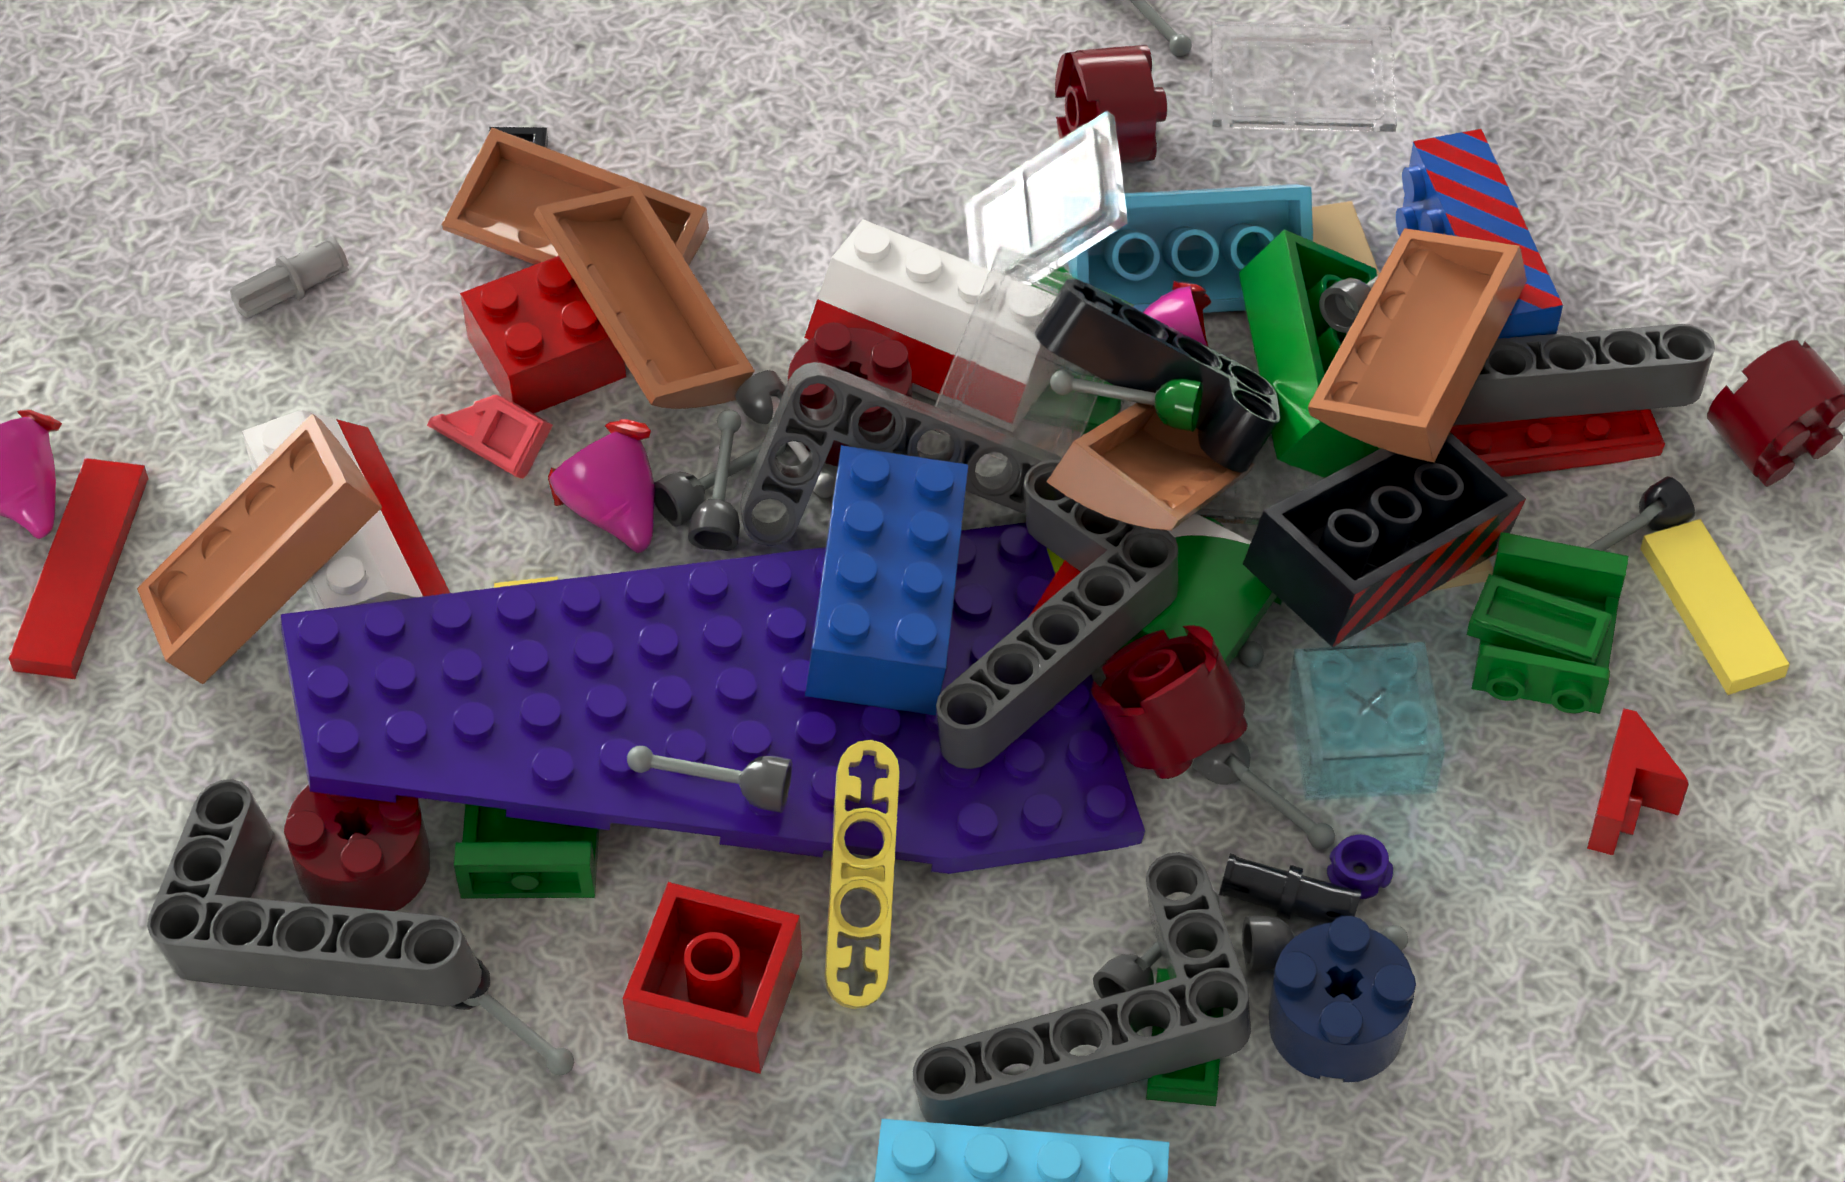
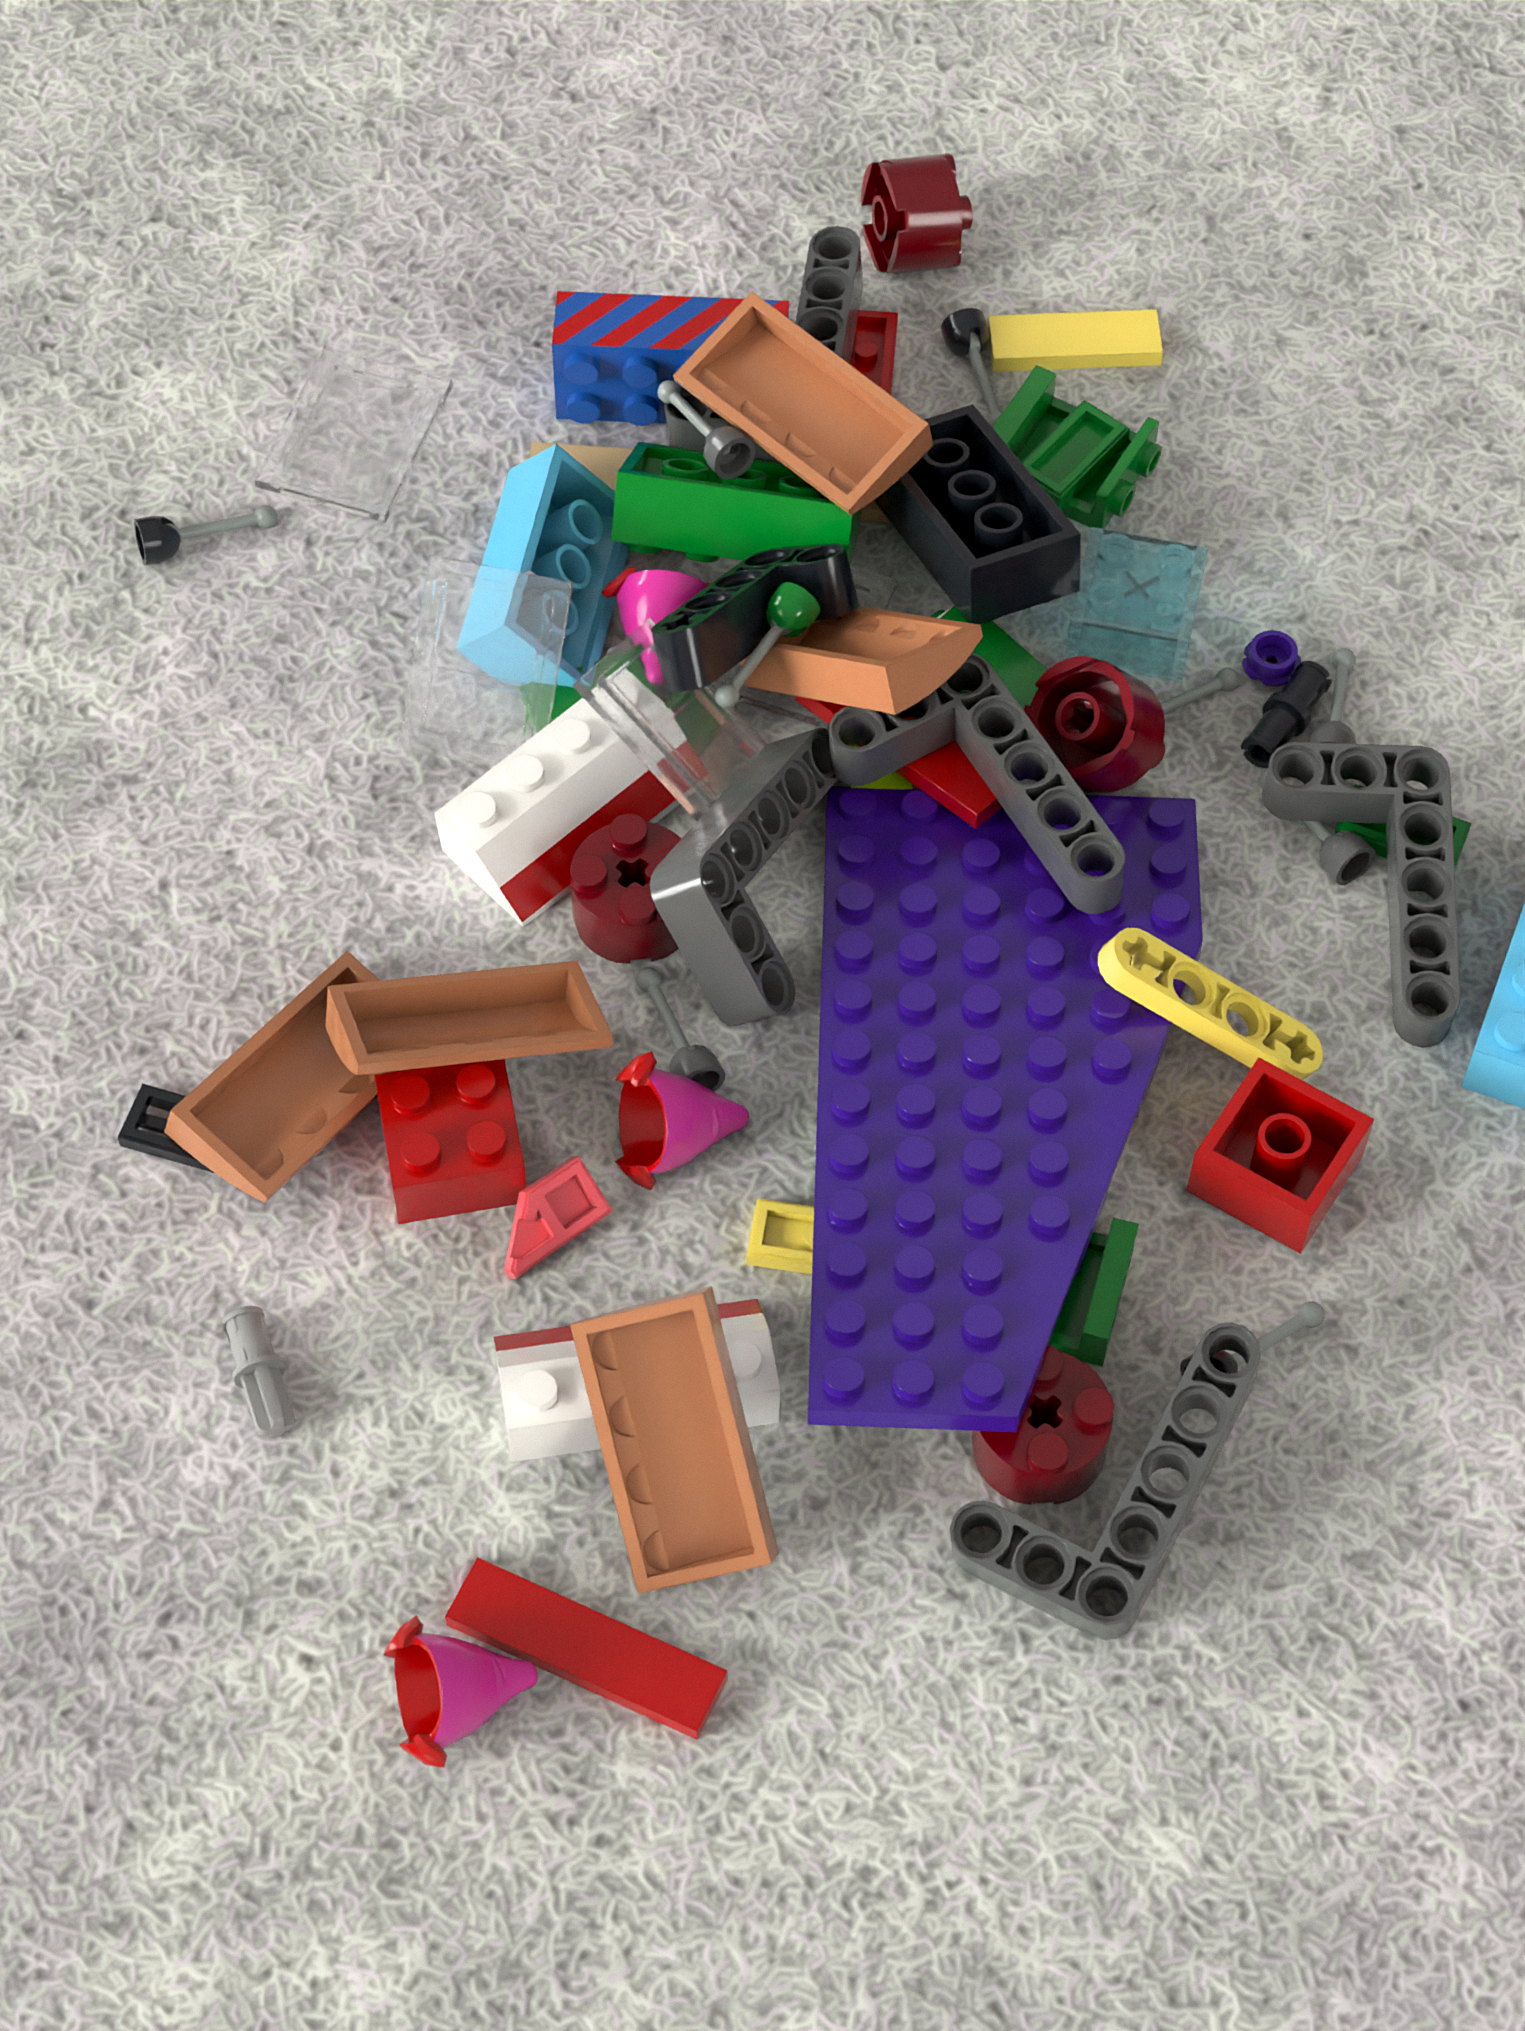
camera: 75 degrees left, 5 degrees up
(715, 521) = (735, 1045): dark grey hinge -> none
(759, 401) = (605, 967): dark grey hinge -> none
(762, 782) = (1118, 1041): hinge -> none
(888, 581) = (910, 893): blue brick -> none
(1113, 82) = (355, 581): dark red brick -> none
(1341, 1001) = (1416, 695): dark blue brick -> none
(1636, 776) = (1239, 447): red slope -> none

